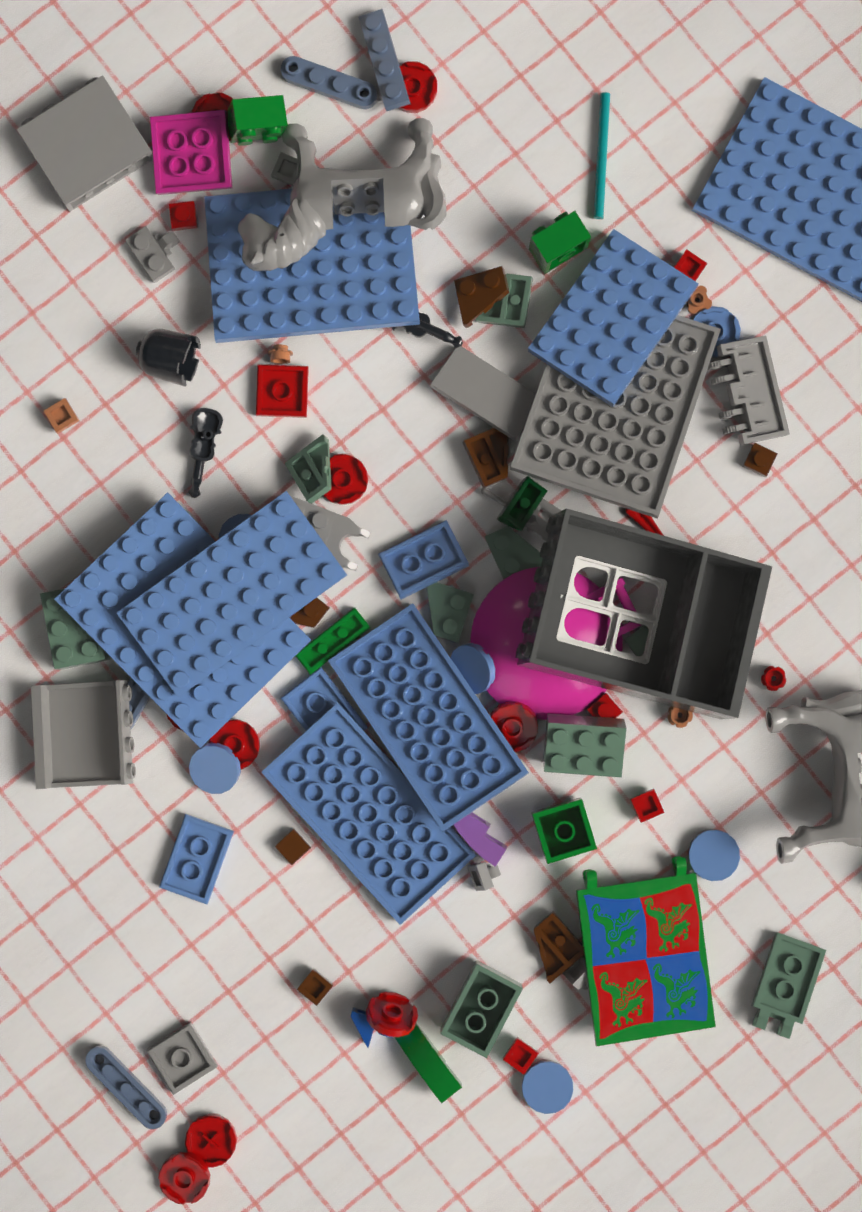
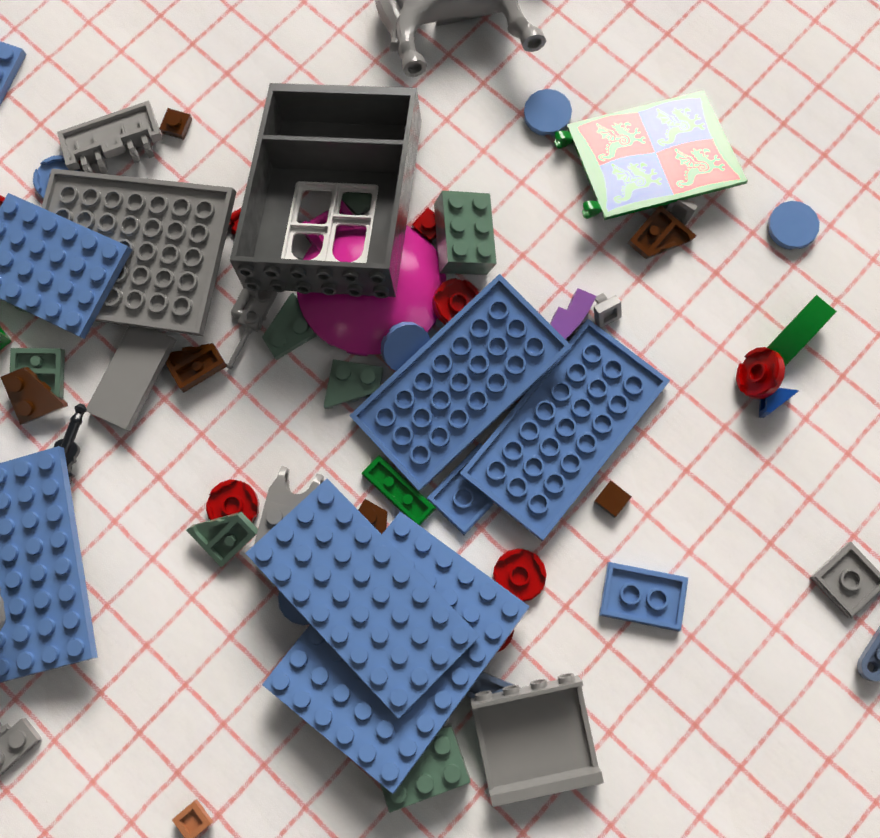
camera: 95 degrees left, 10 degrees down
(169, 355) = (115, 708): black cylinder -> none
(206, 425) = (189, 656): black piece -> none
(214, 768) = (547, 590): medium blue tile -> none
(280, 354) = (108, 589): nougat plate -> none
(282, 391) = (147, 582): red tile -> none
(315, 986) = (748, 454): reddish brown plate -> none
(423, 559) = (304, 412): medium blue tile -> none
(481, 1009) = (735, 290): sand green brick -> none
(520, 1055) = (770, 252): red plate -> none
(522, 504) = (238, 325): dark green slope -> none
(564, 830) = (549, 240): green brick -> none
(647, 805) = (512, 174): red plate -> none
(682, 721) = (429, 156): nougat plate -> none
(704, 303) = (33, 196): nougat plate -> none
(780, 680) = (377, 78): red plate -> none
(787, 983) = (653, 36): sand green tile -> none

